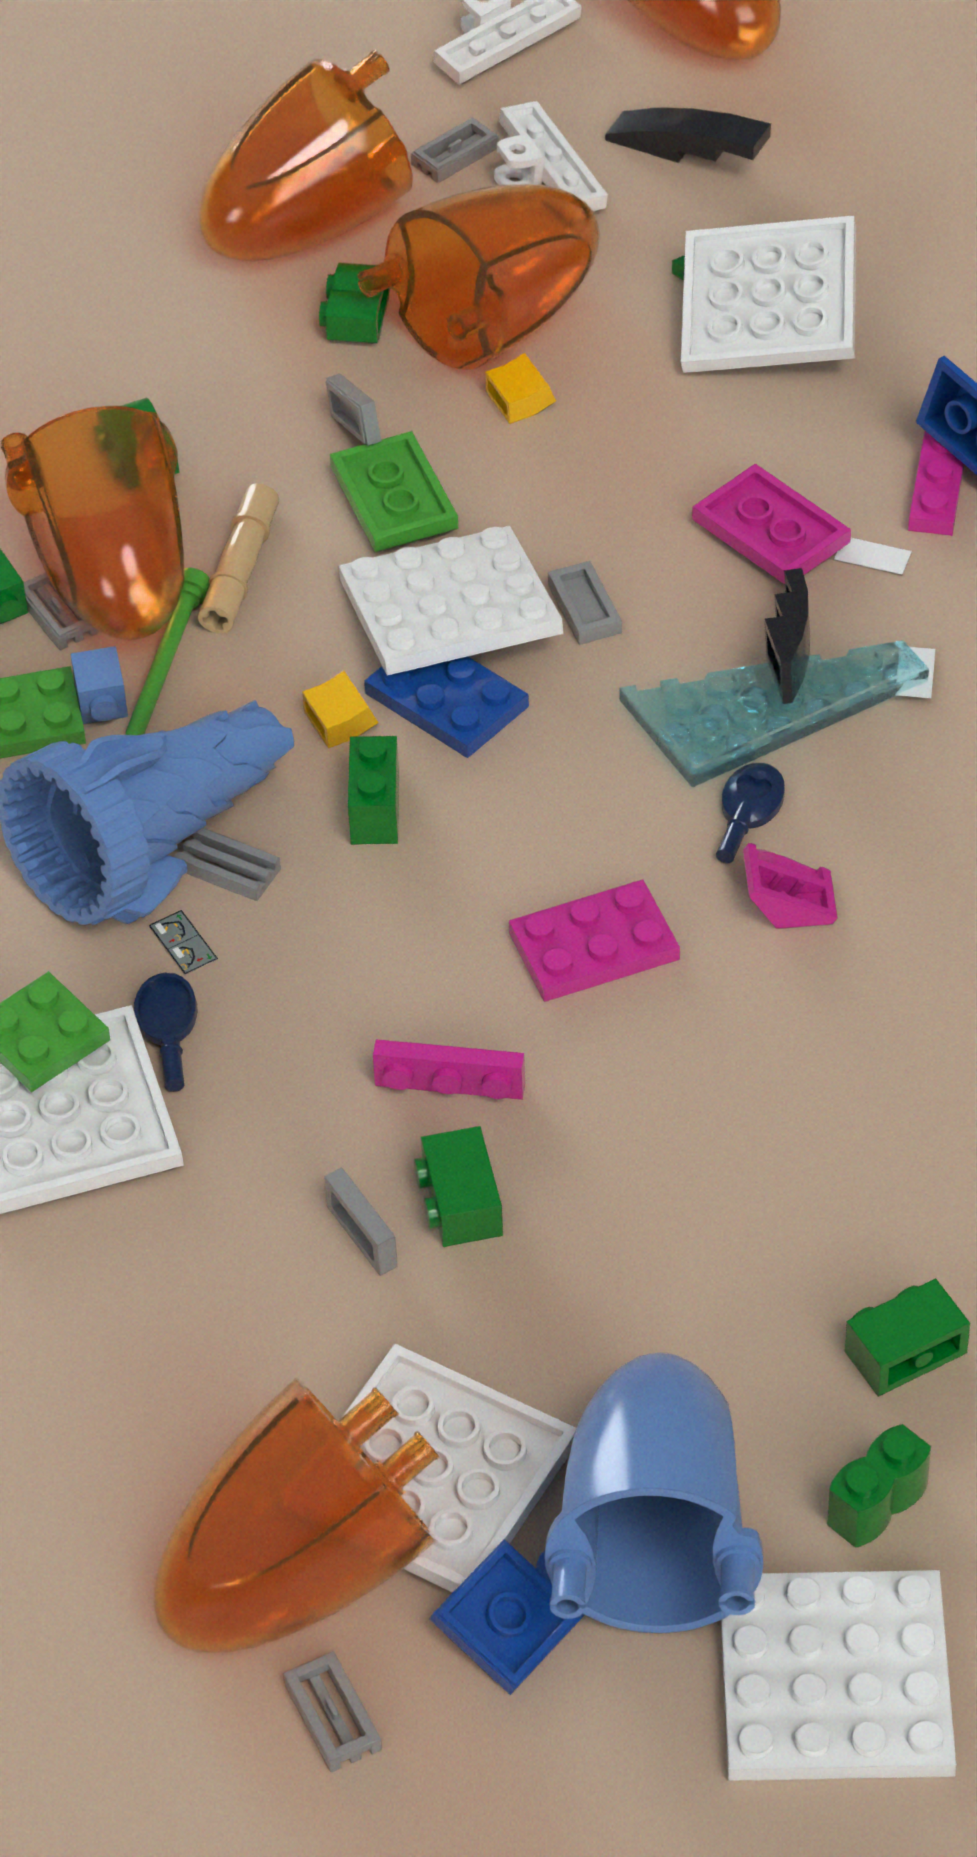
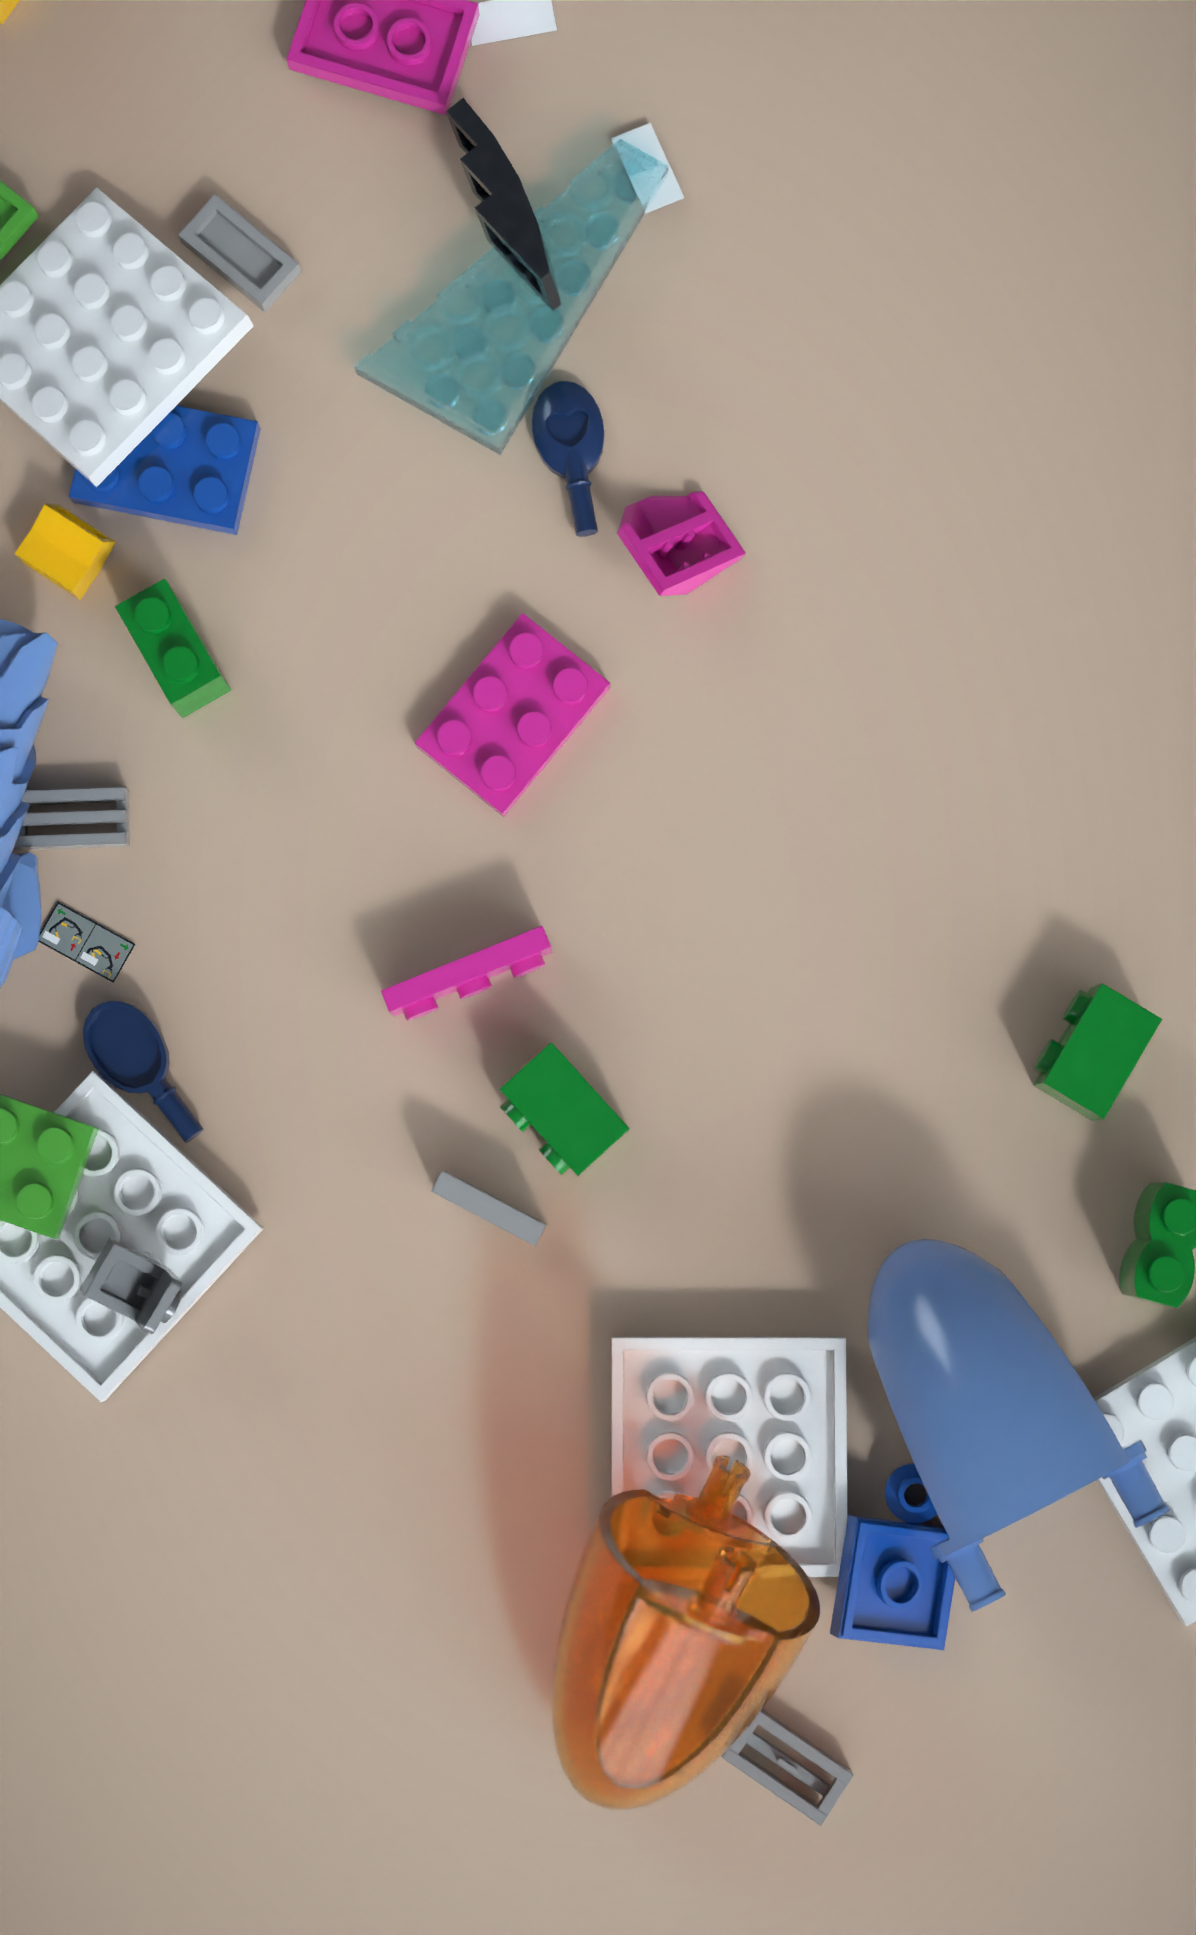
camera: 30 degrees left, 35 degrees up
(63, 1130) = (133, 1286): none -> bracket

